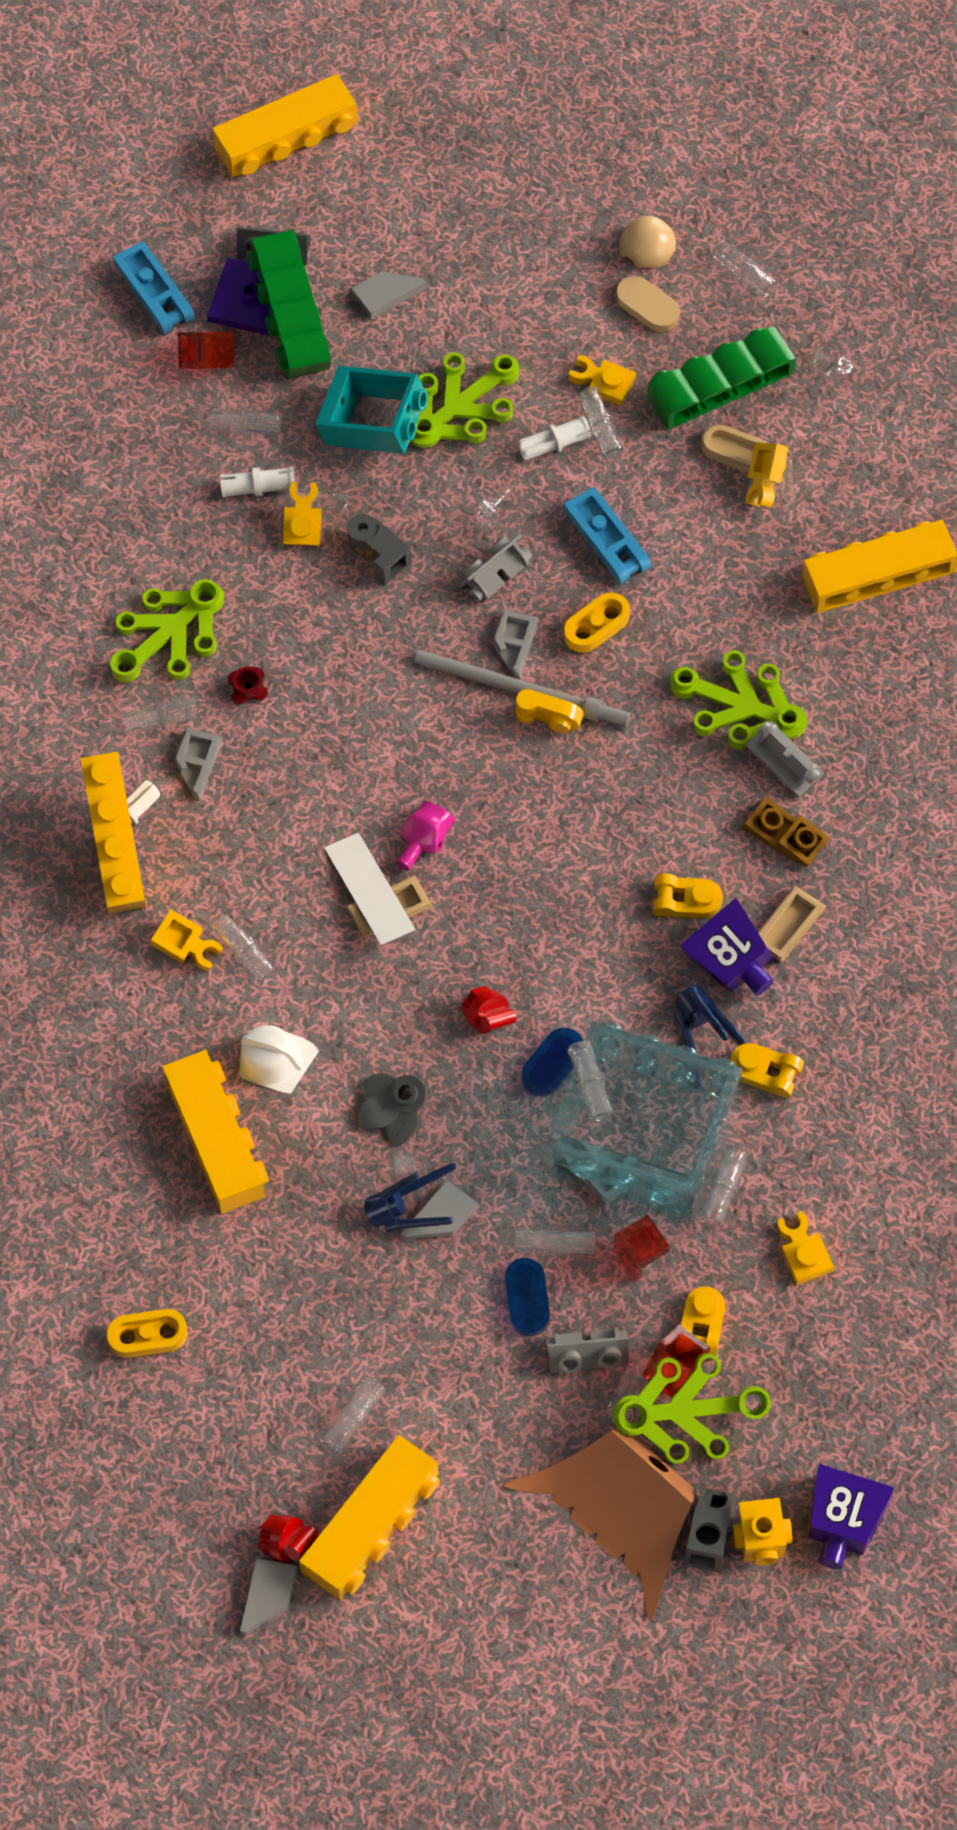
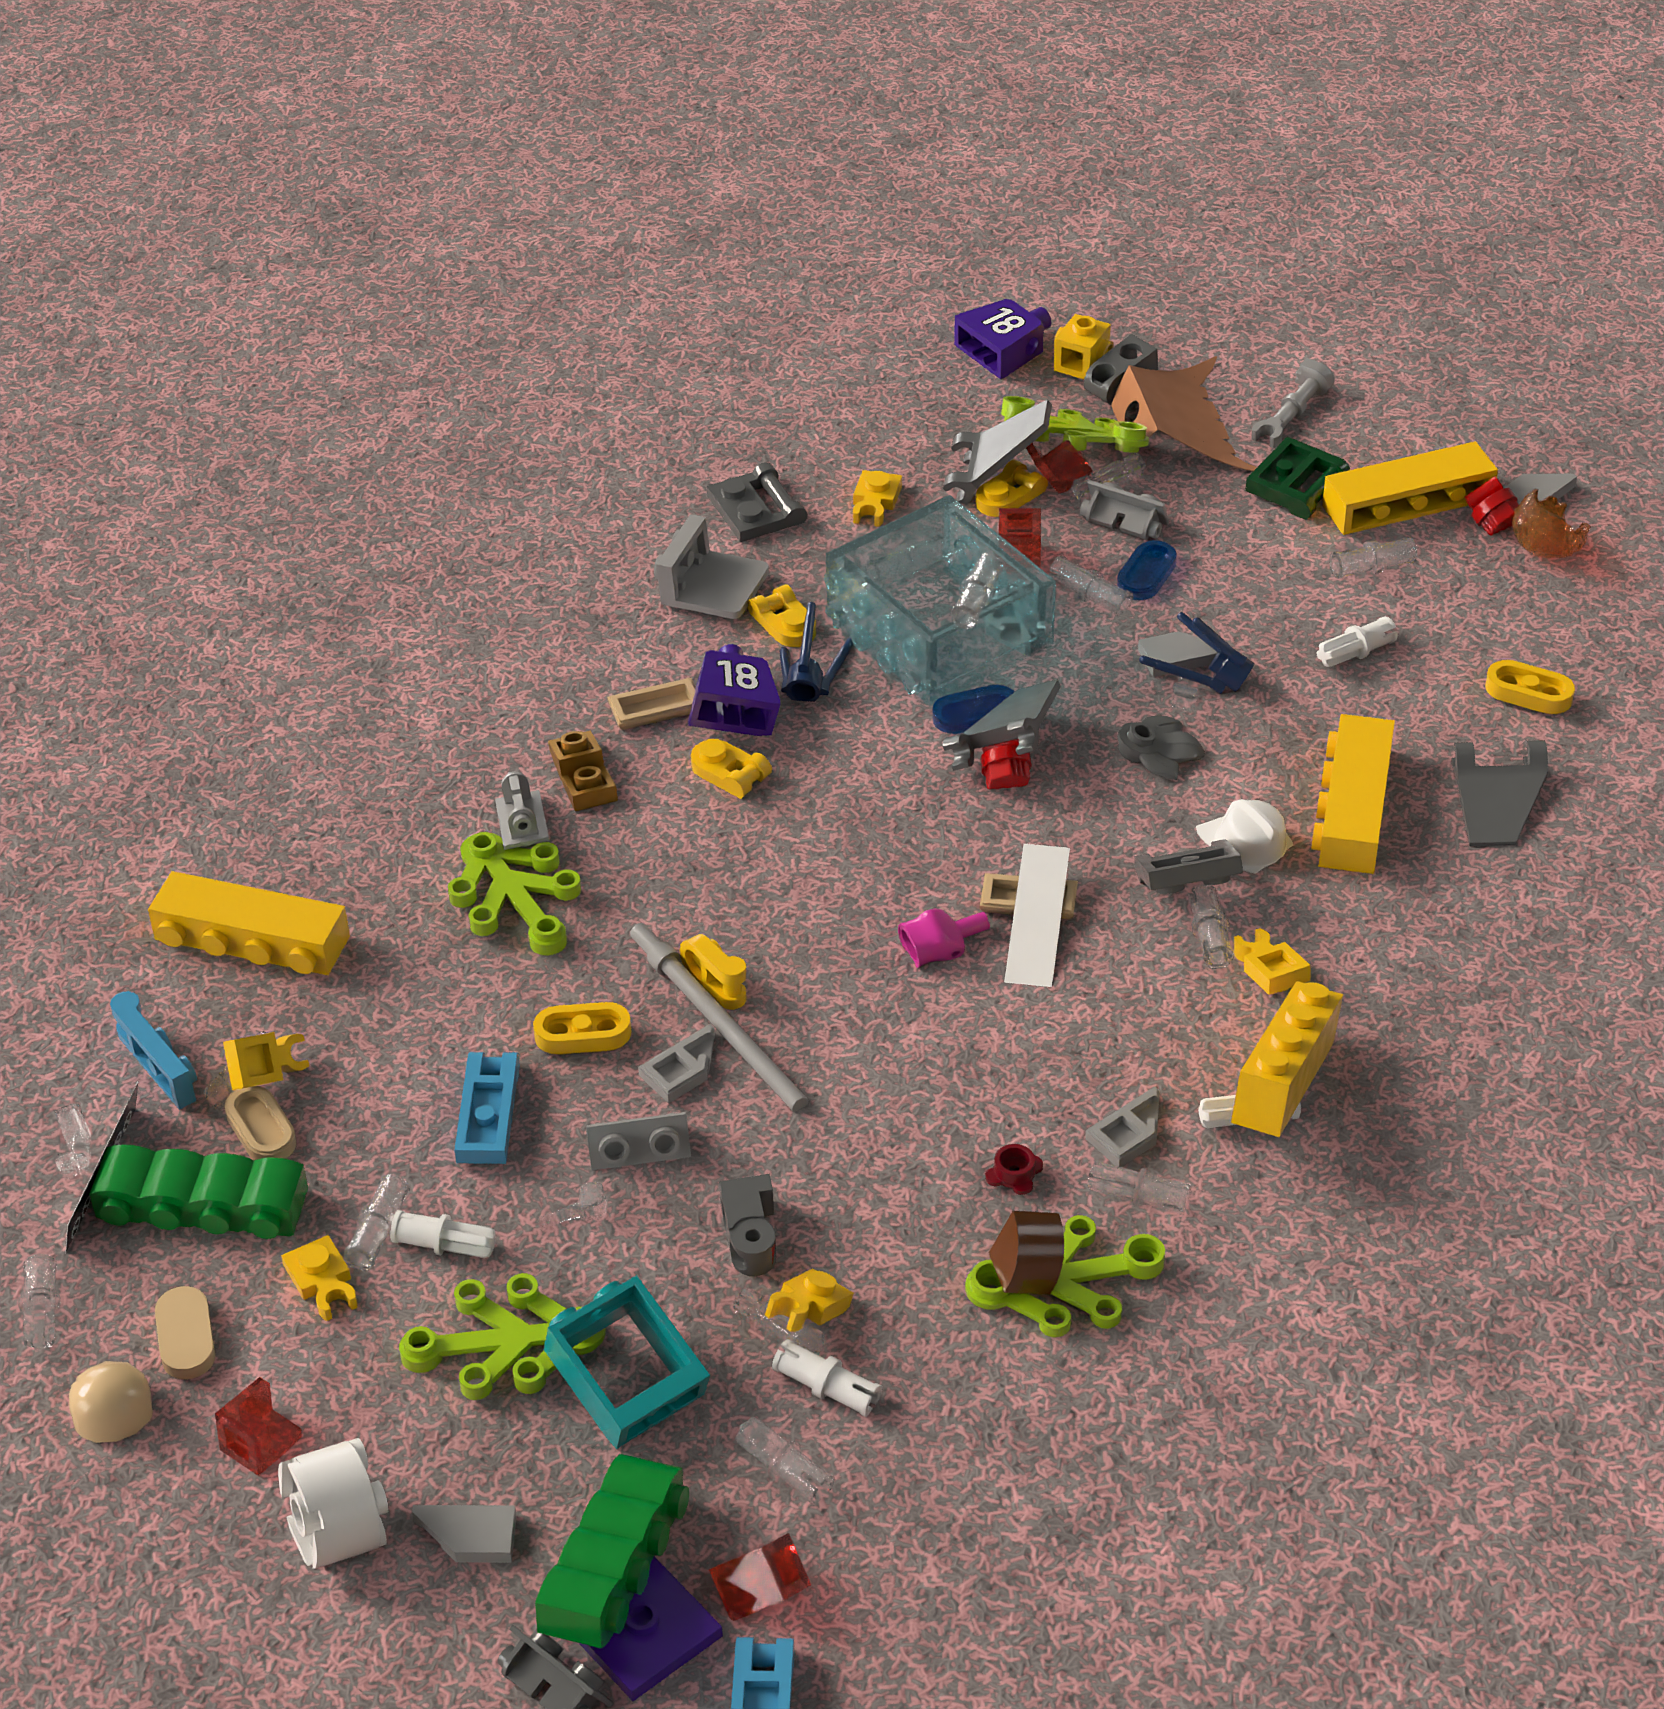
camera: 145 degrees left, 20 degrees down
(114, 1205) = (1498, 797): none -> dark grey flag
(187, 603) = (1029, 1252): none -> reddish brown brick
(223, 1530) = (1543, 528): none -> clear orange hair
(280, 970) = (1171, 871): none -> dark grey plate
(308, 1303) = (1357, 642): none -> white axle
(459, 240) = (333, 1503): none -> white brick
(487, 1482) = (1287, 469): none -> dark green plate
(504, 1033) = (1012, 719): none -> dark grey flag
(538, 1627) = (1312, 379): none -> light grey piece
(546, 268) = (253, 1430): none -> clear red panel
(727, 1335) = (995, 448): none -> flag
(797, 364) = (115, 1139): none -> black sticker
(845, 445) = (153, 1050): none -> dark azure plate
(851, 1065) = (706, 579): none -> light grey bracket
(895, 1170) = (745, 509): none -> dark grey plate

